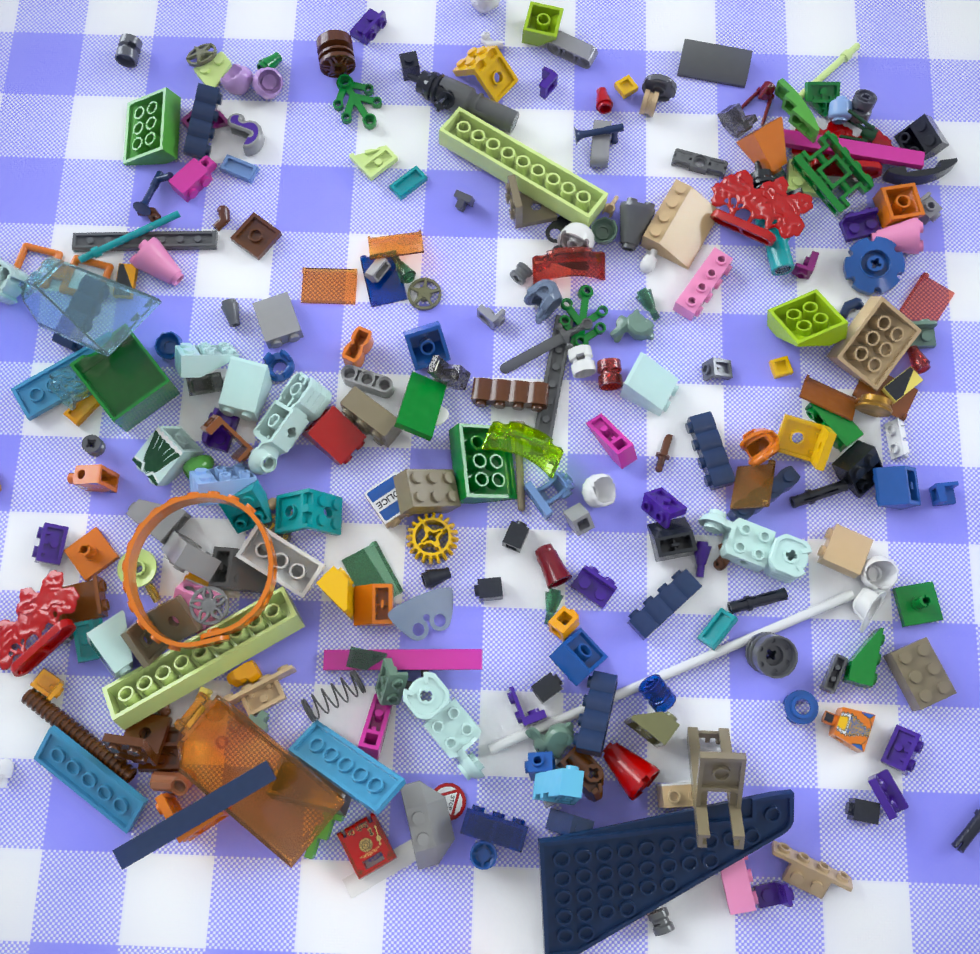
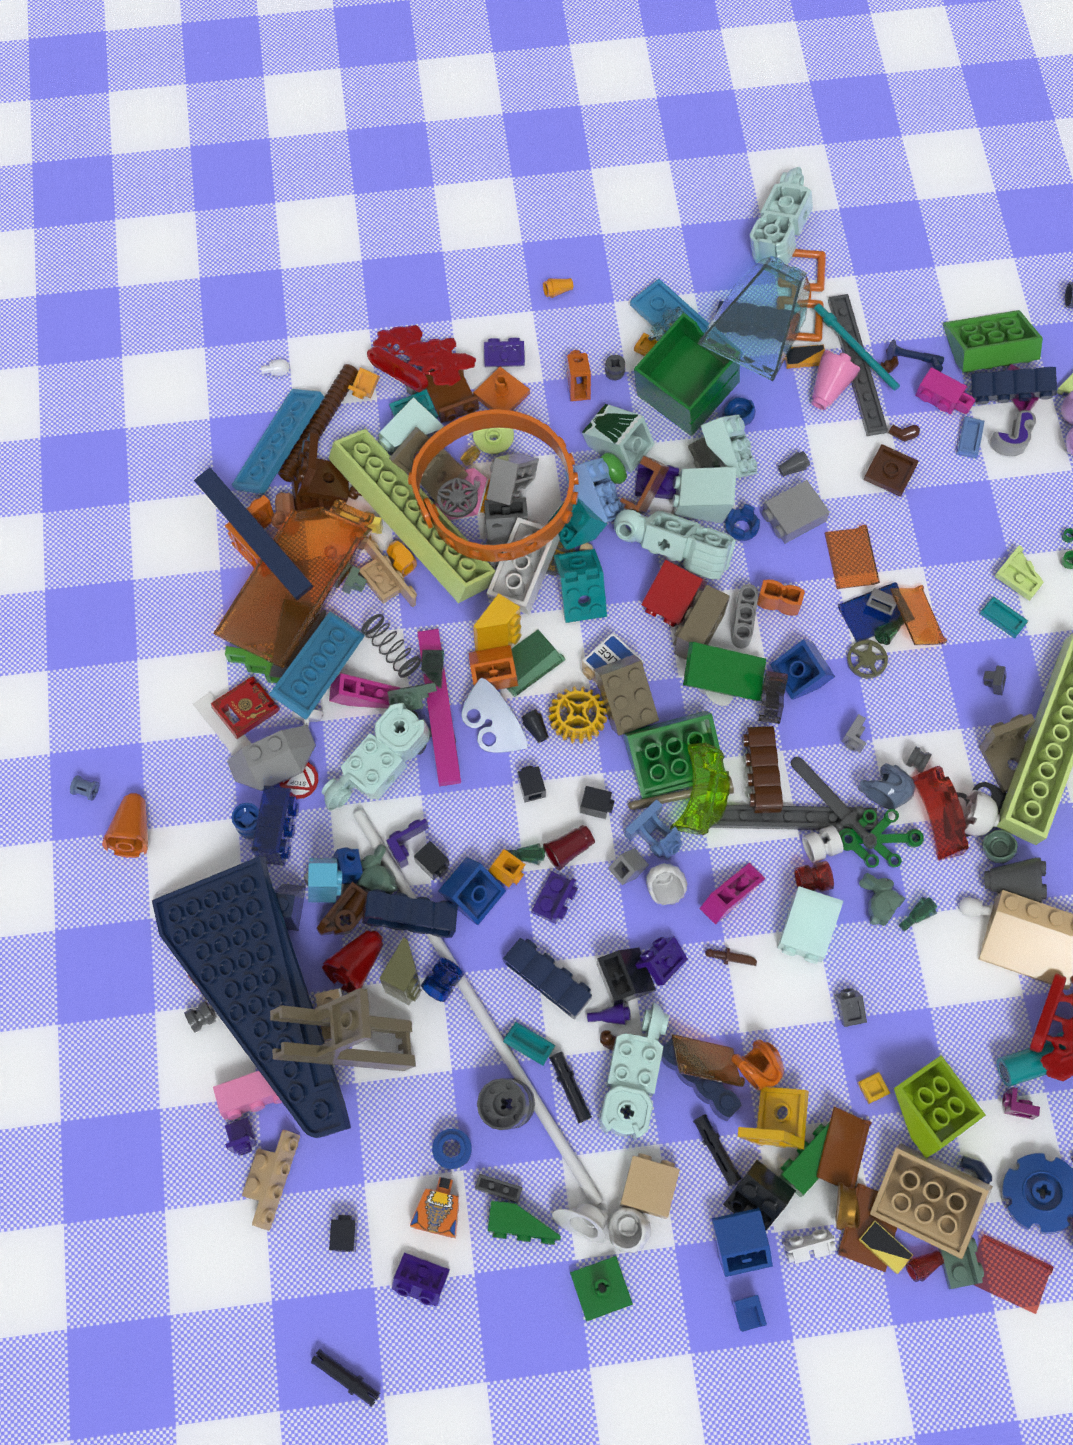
camera: 80 degrees right, 5 degrees down
(175, 521) = (537, 448): light grey slope -> none
(610, 207) = (1035, 851): tan hand -> none
(702, 284) = (960, 976): bright pink brick -> none
(711, 452) = (743, 1010): dark blue brick -> none
(888, 793) = (365, 1261): dark purple bracket -> none
(919, 674) = (513, 1292): dark tan brick -> none

